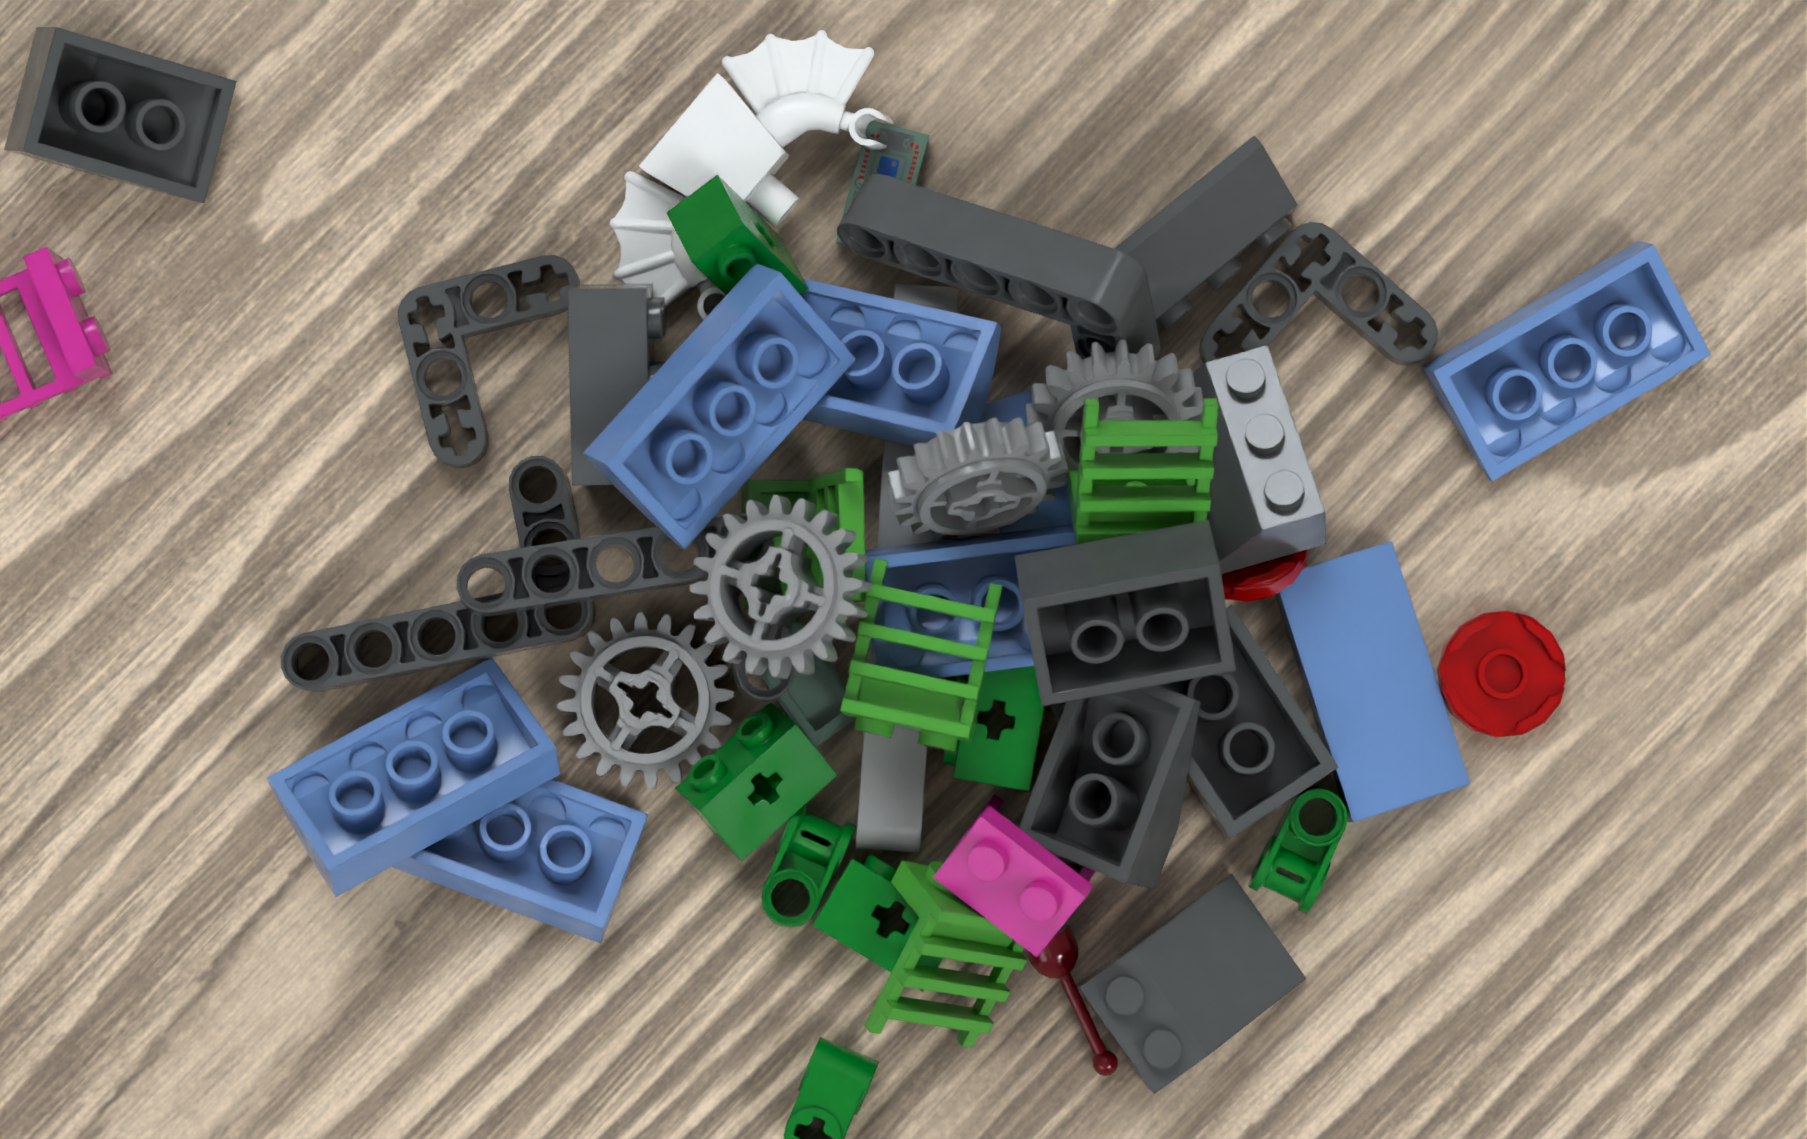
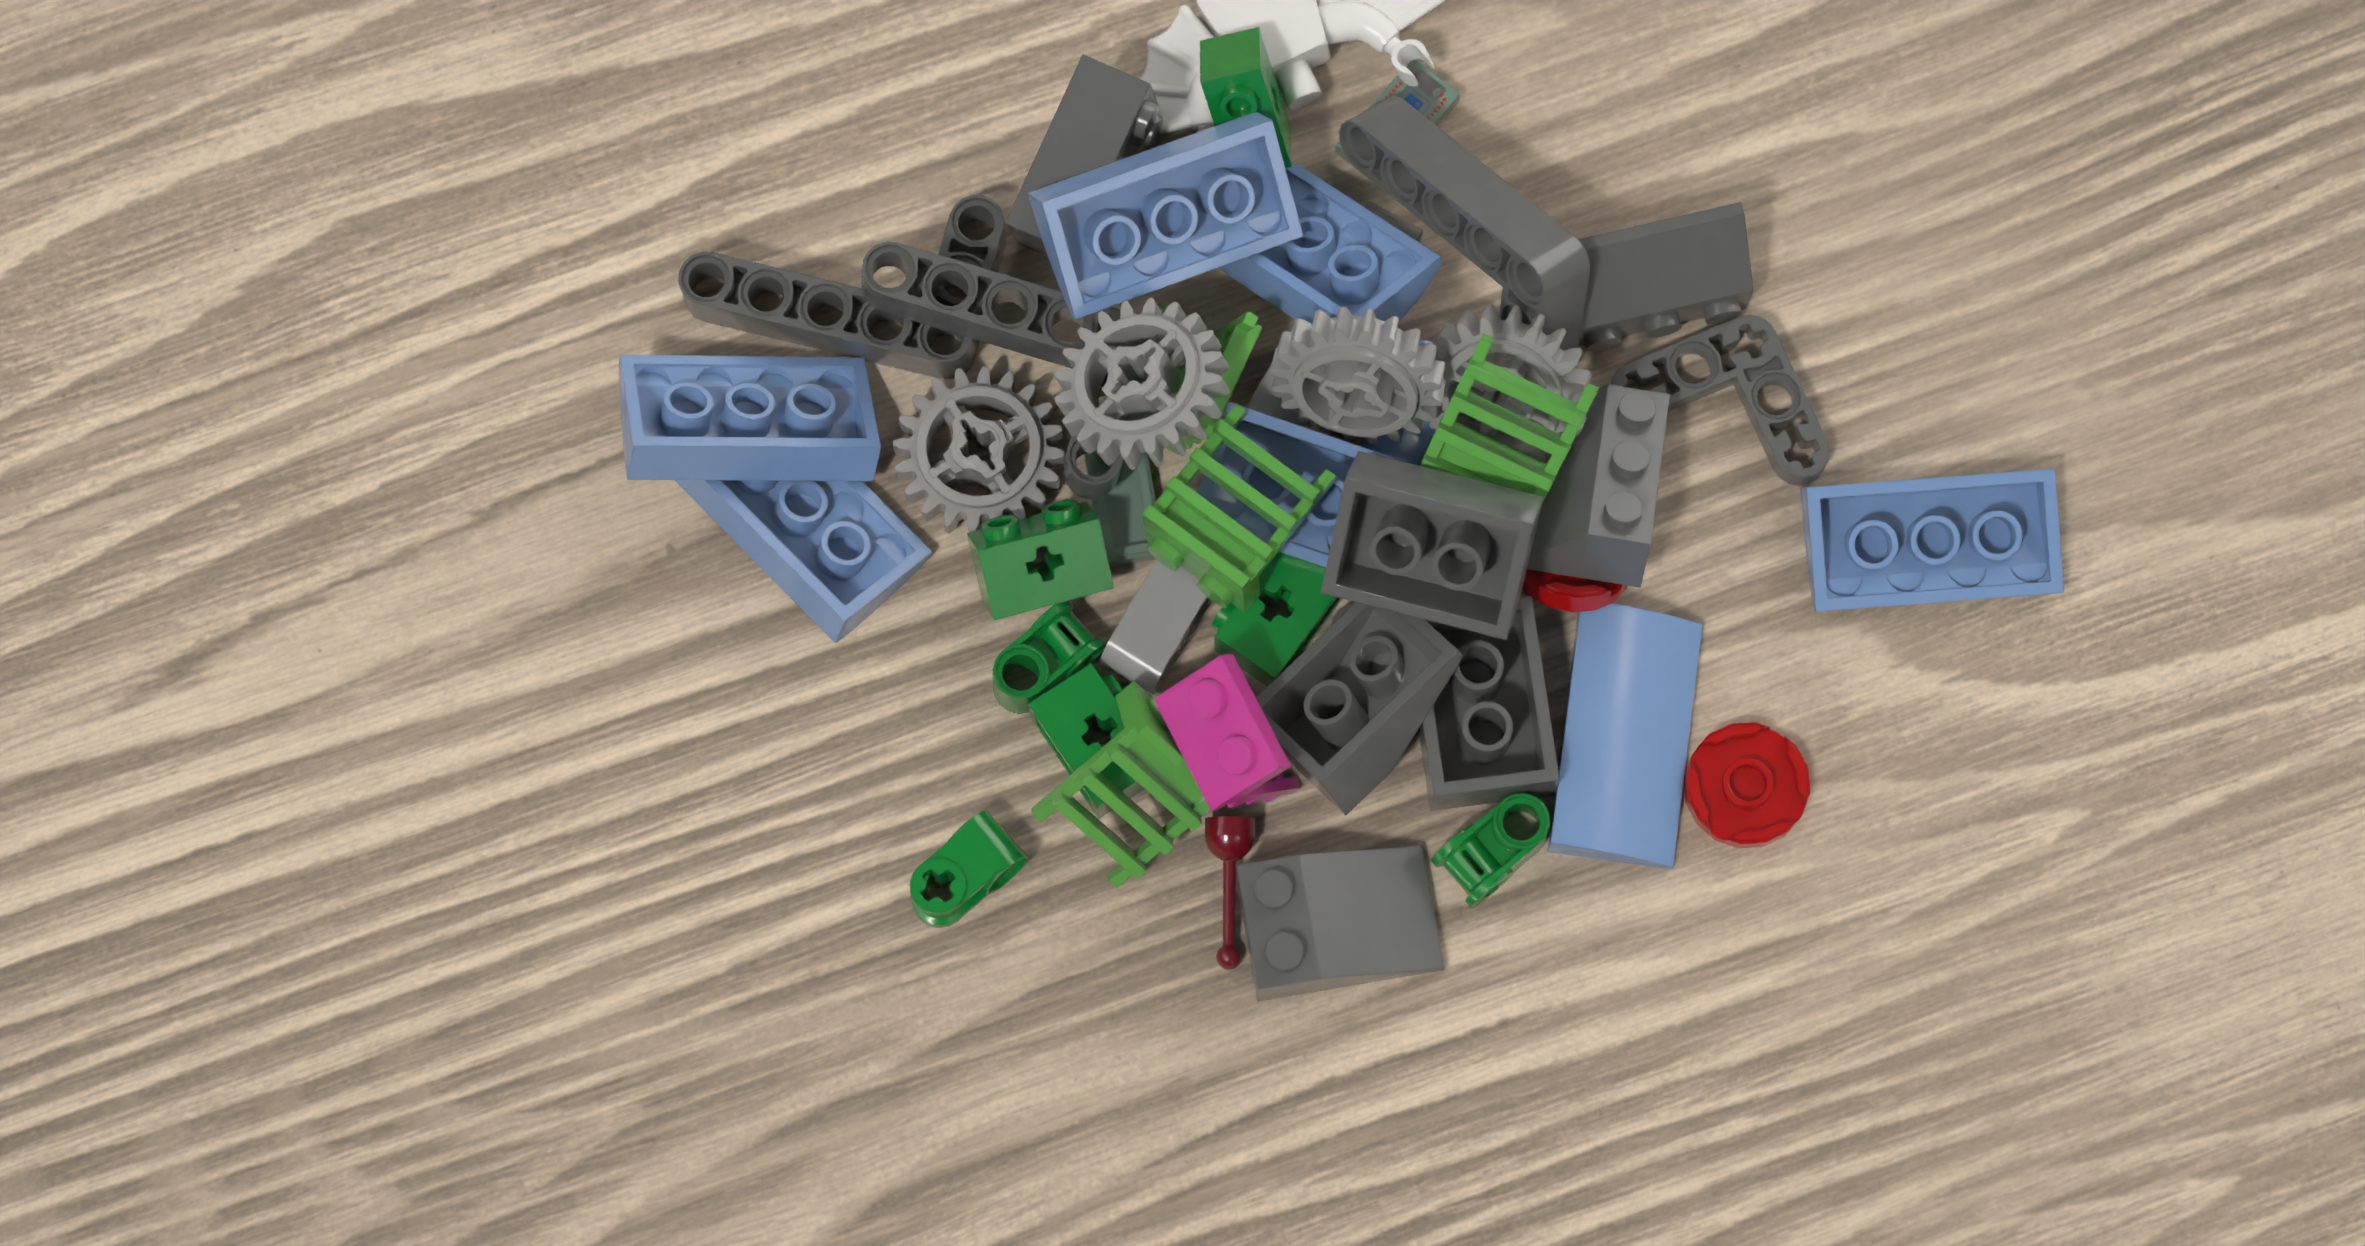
camera: 30 degrees right, 10 degrees down
(461, 323) = (976, 68): dark grey beam -> none

